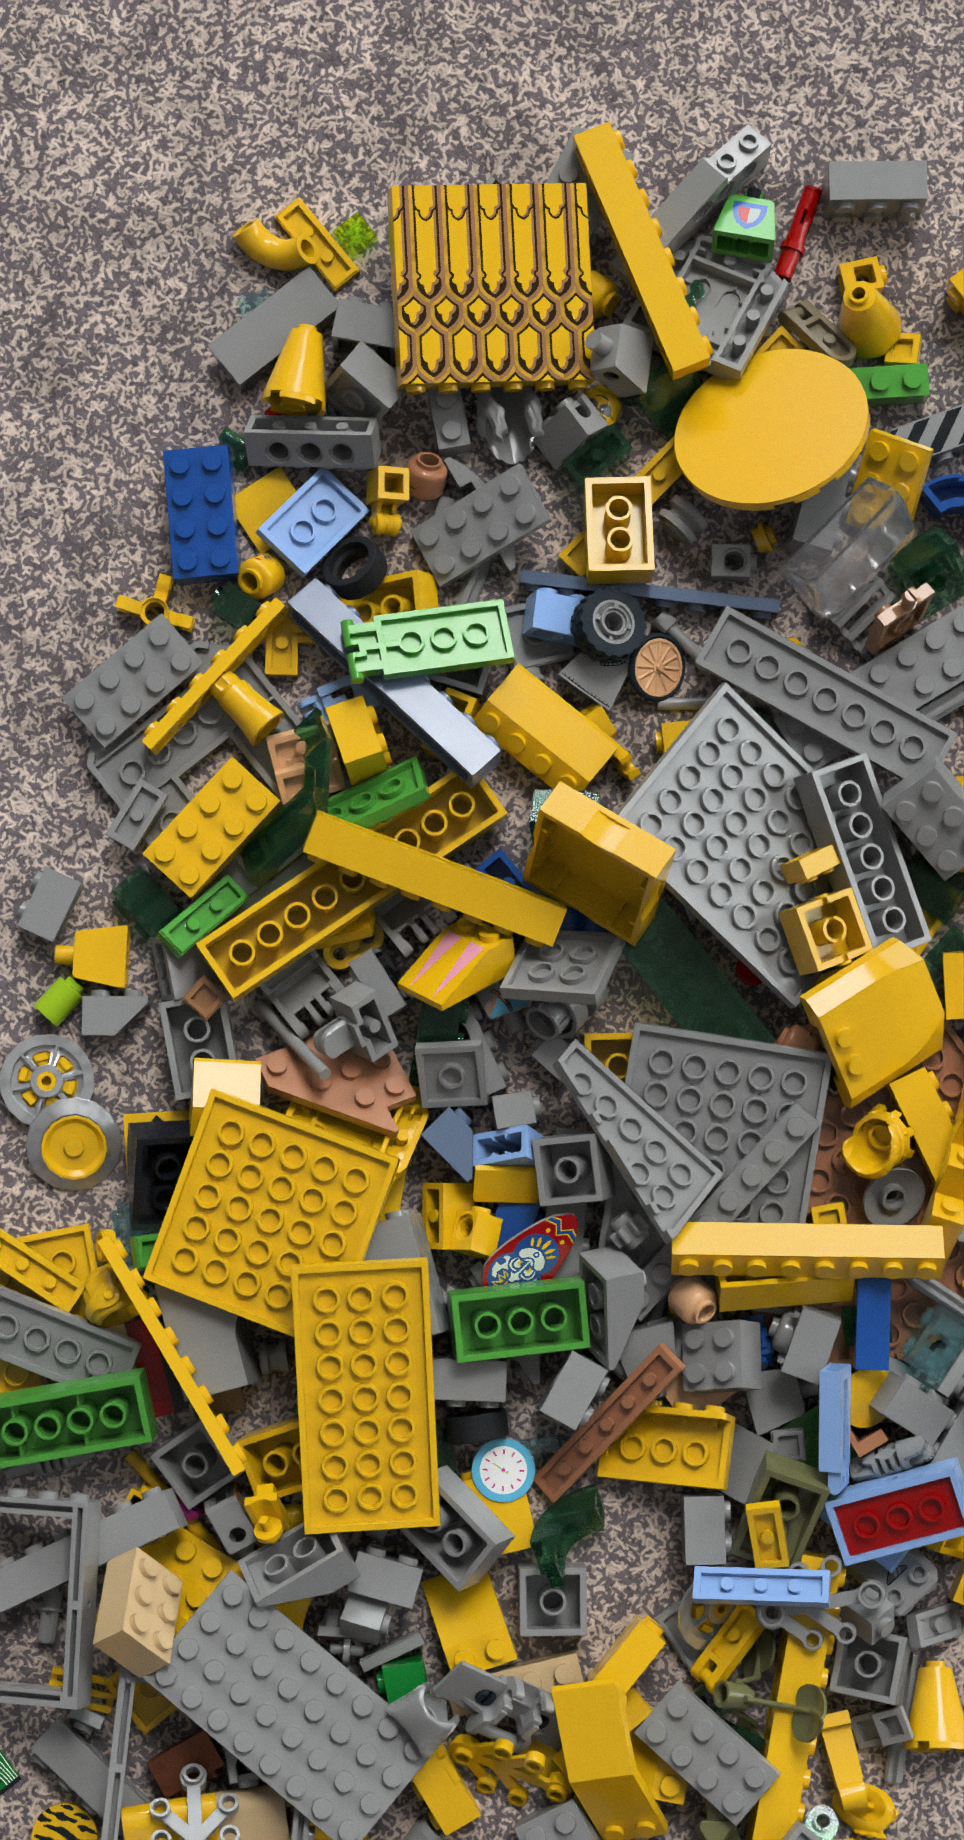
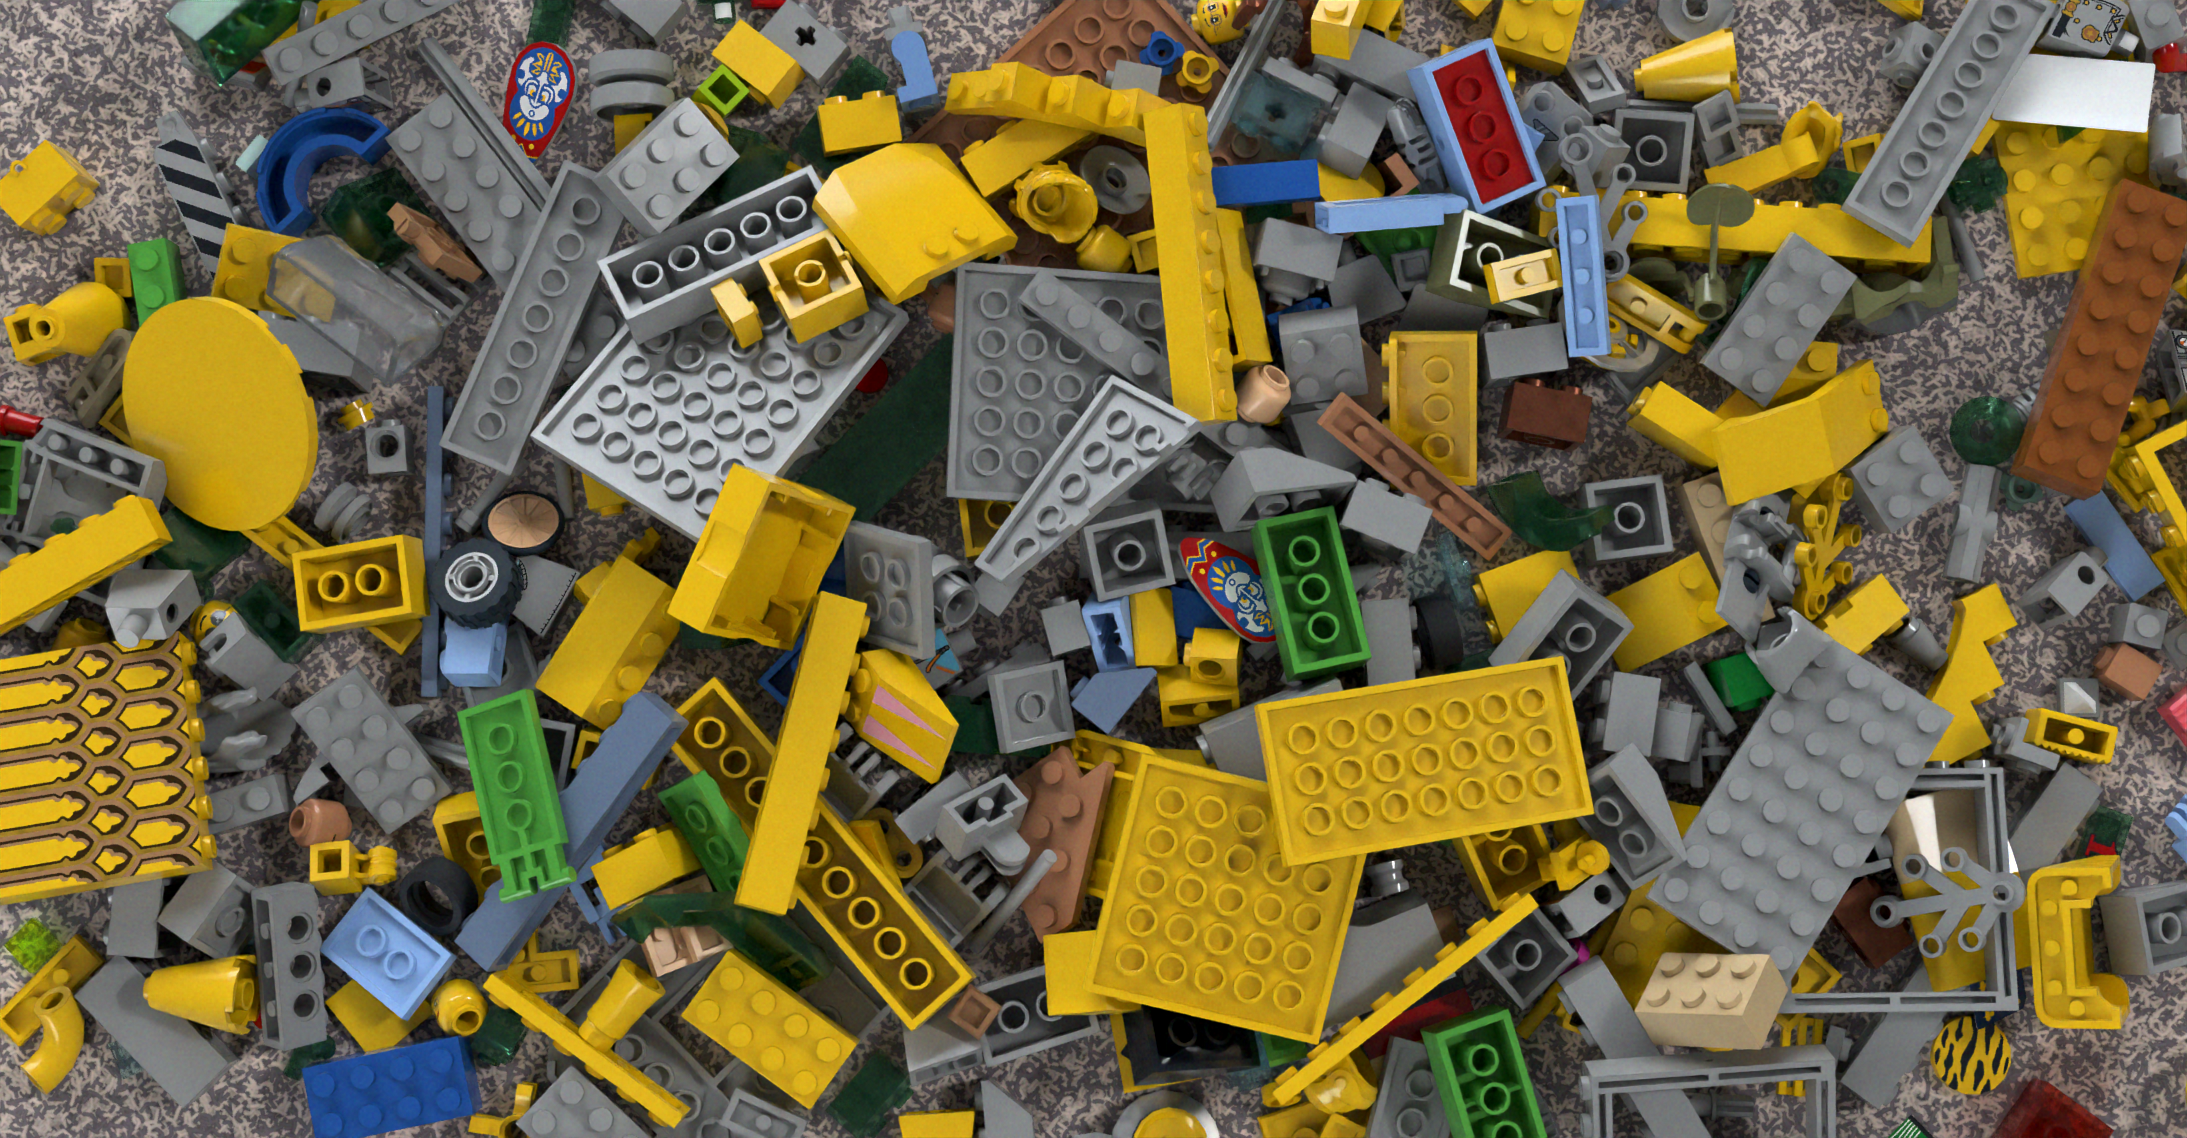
camera: 95 degrees left, 0 degrees up
(203, 916) = (878, 1026): bright green tile -> none
(503, 1470) = (1484, 593): sticker -> none
(649, 1541) = (1544, 415): none -> copper brick
(831, 1180) = (1104, 251): none -> yellow head

